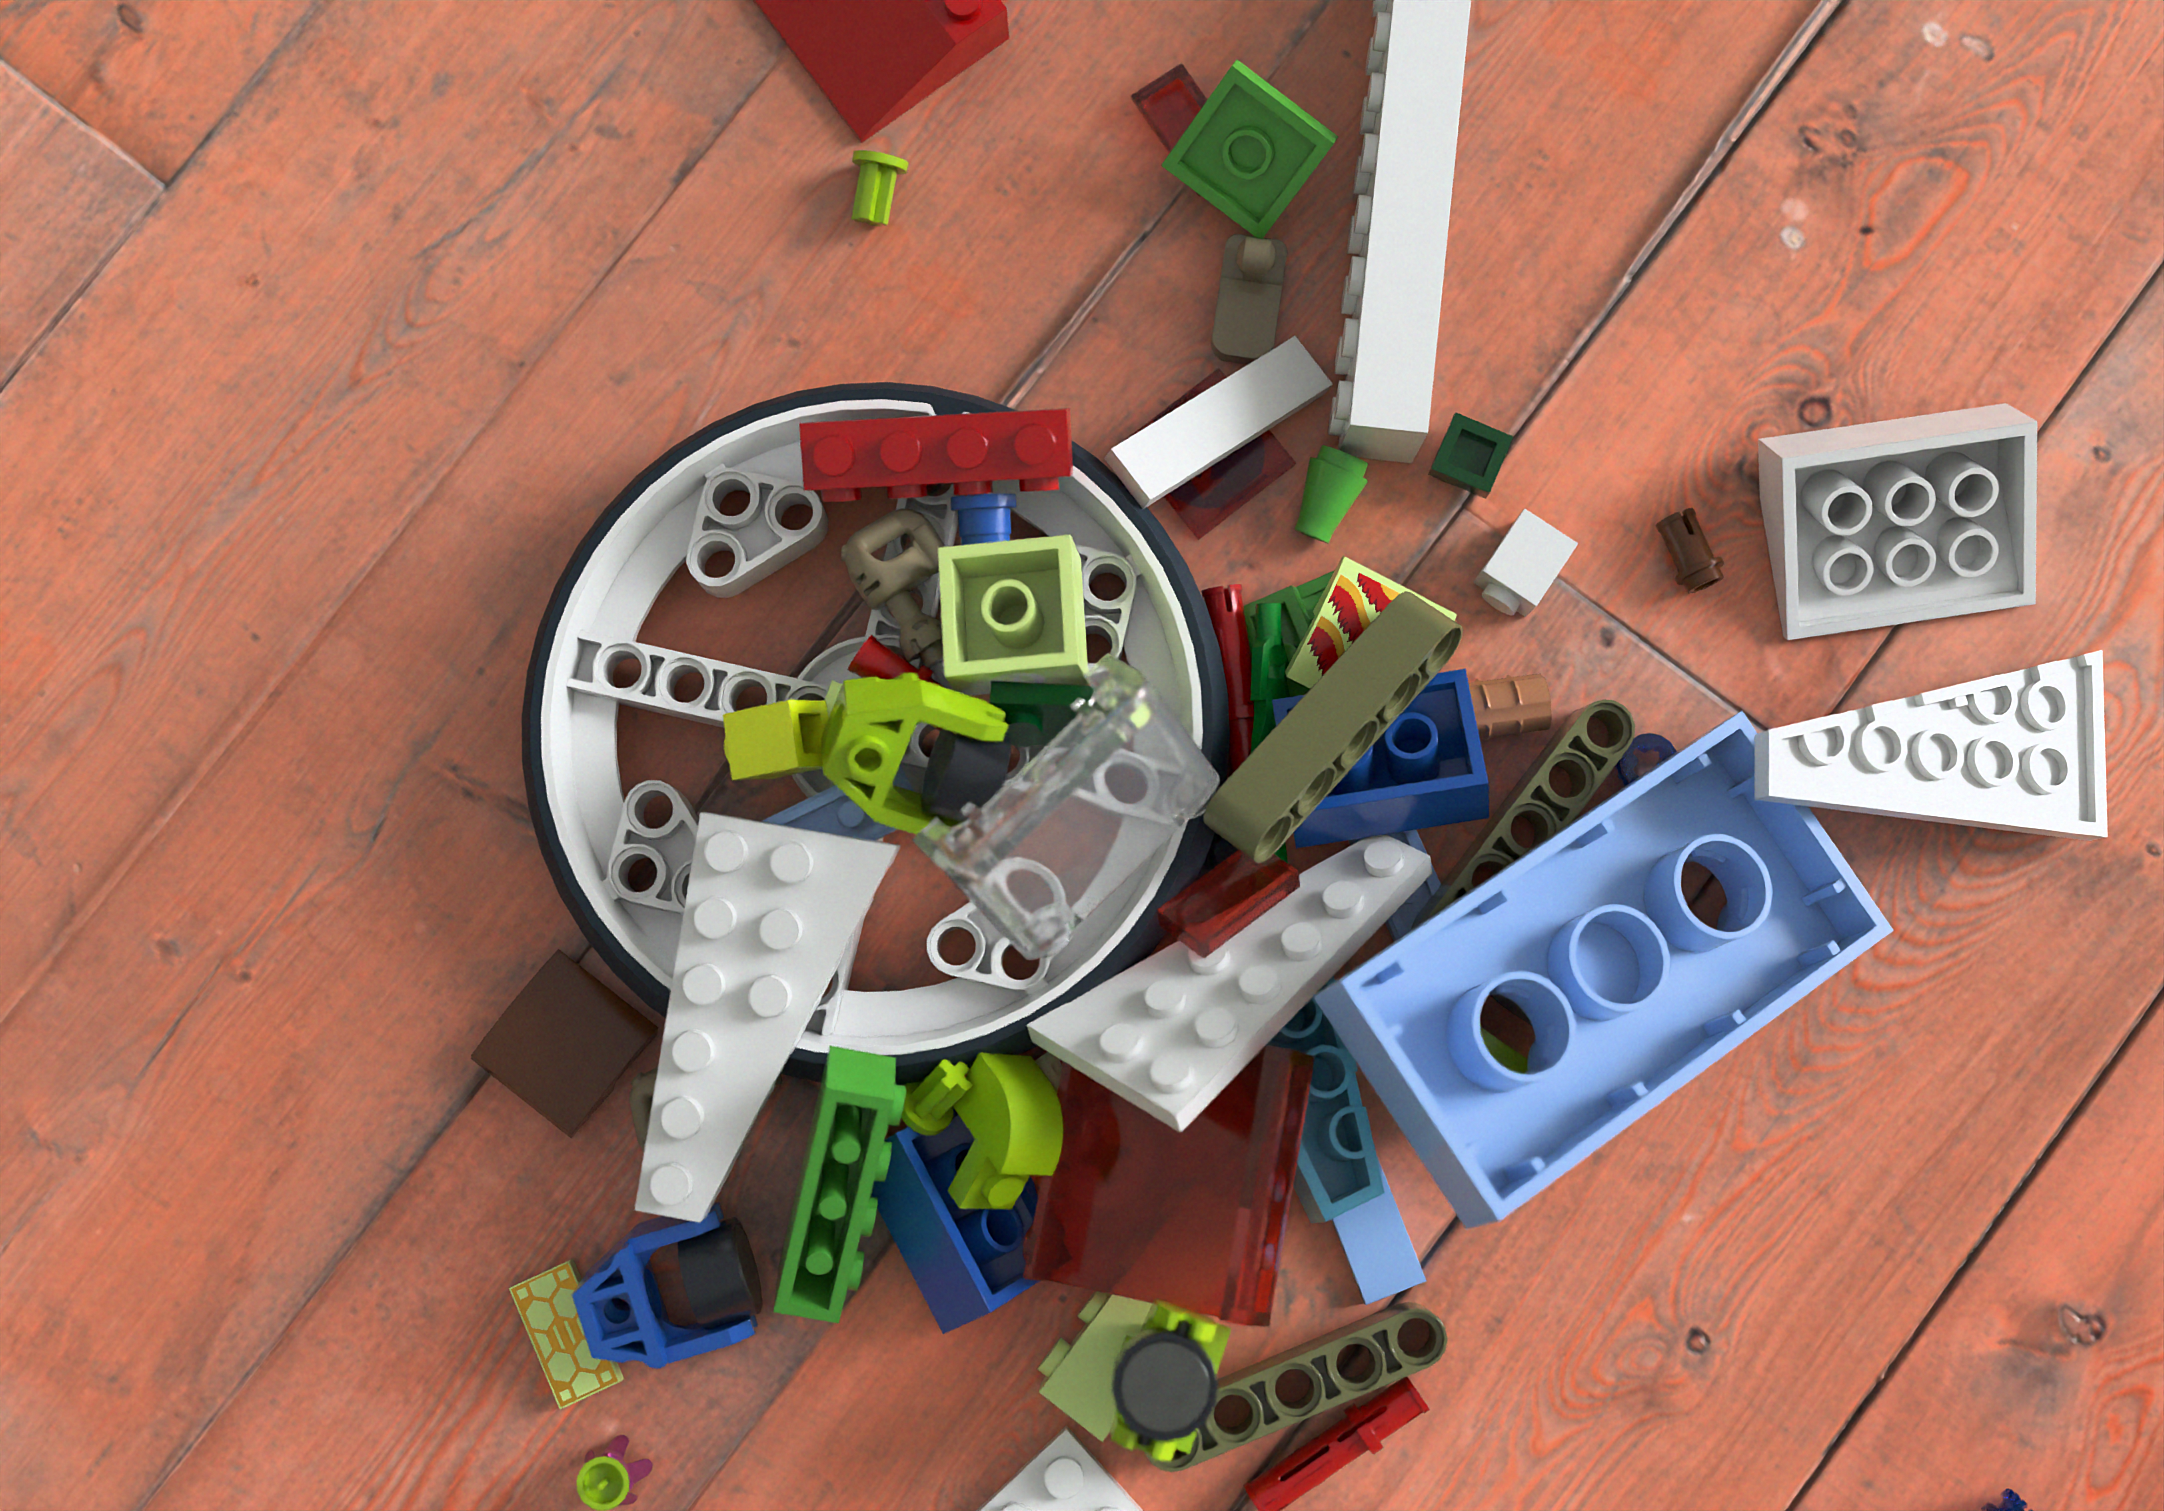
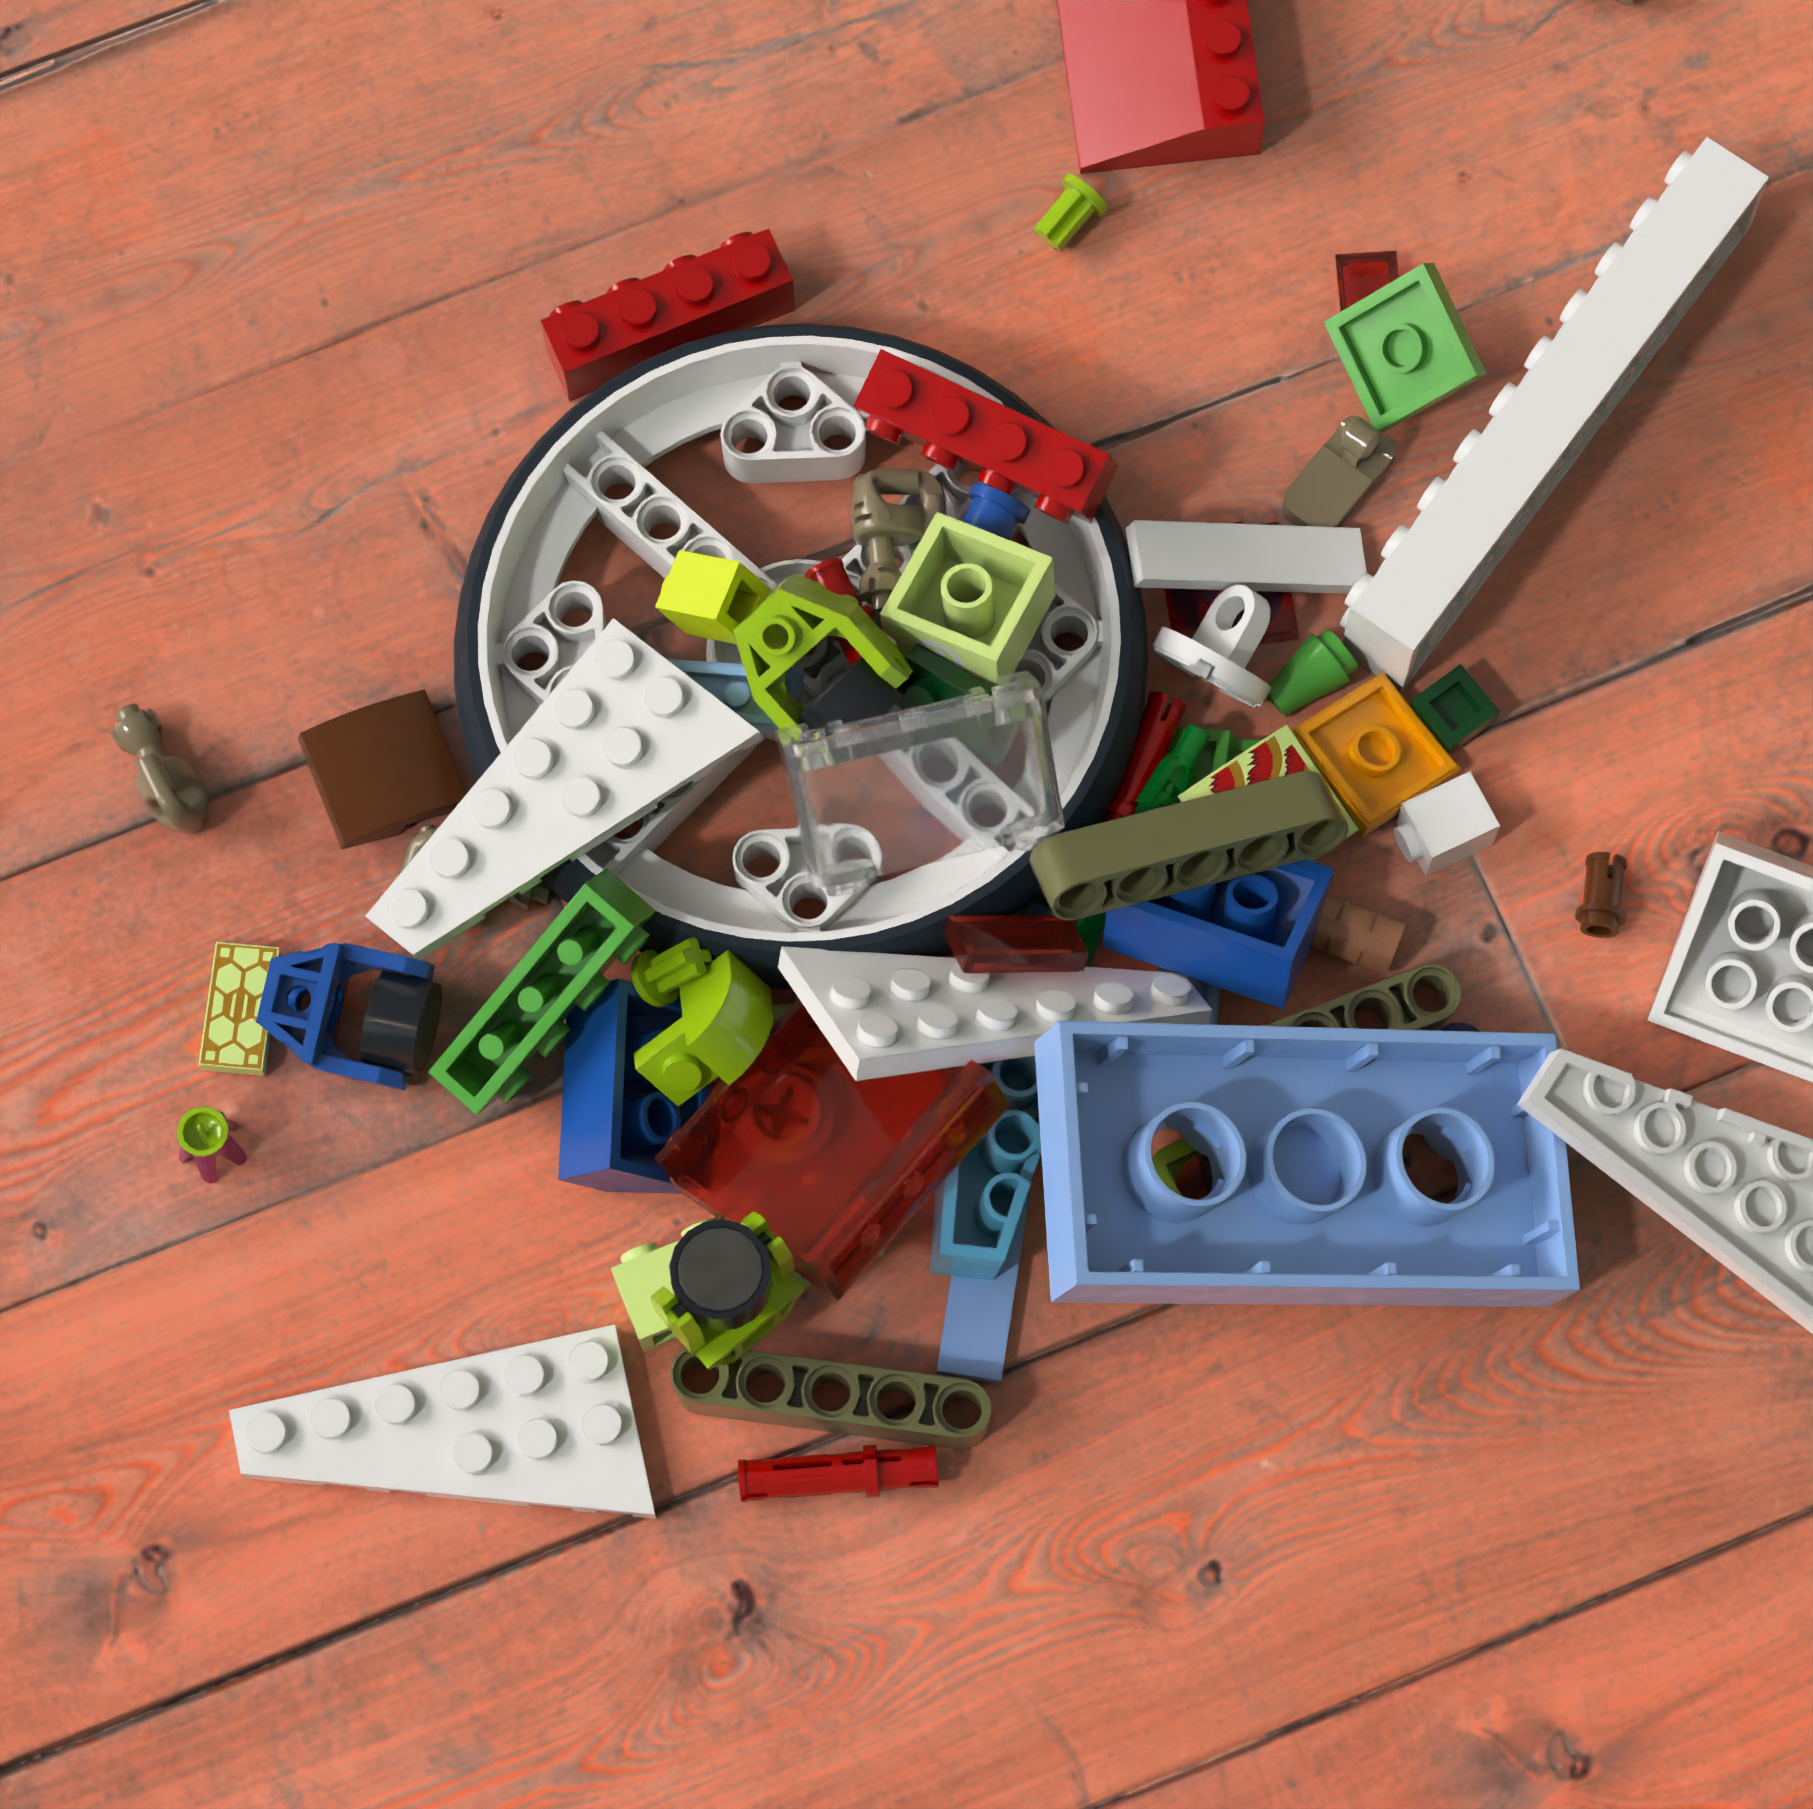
camera: 30 degrees right, 10 degrees down
(382, 1173) = (165, 783): none -> dark tan piece
(573, 478) = (687, 301): none -> red brick
(1245, 524) = (1218, 650): none -> white tile
(1426, 534) = (1375, 752): none -> light orange tile

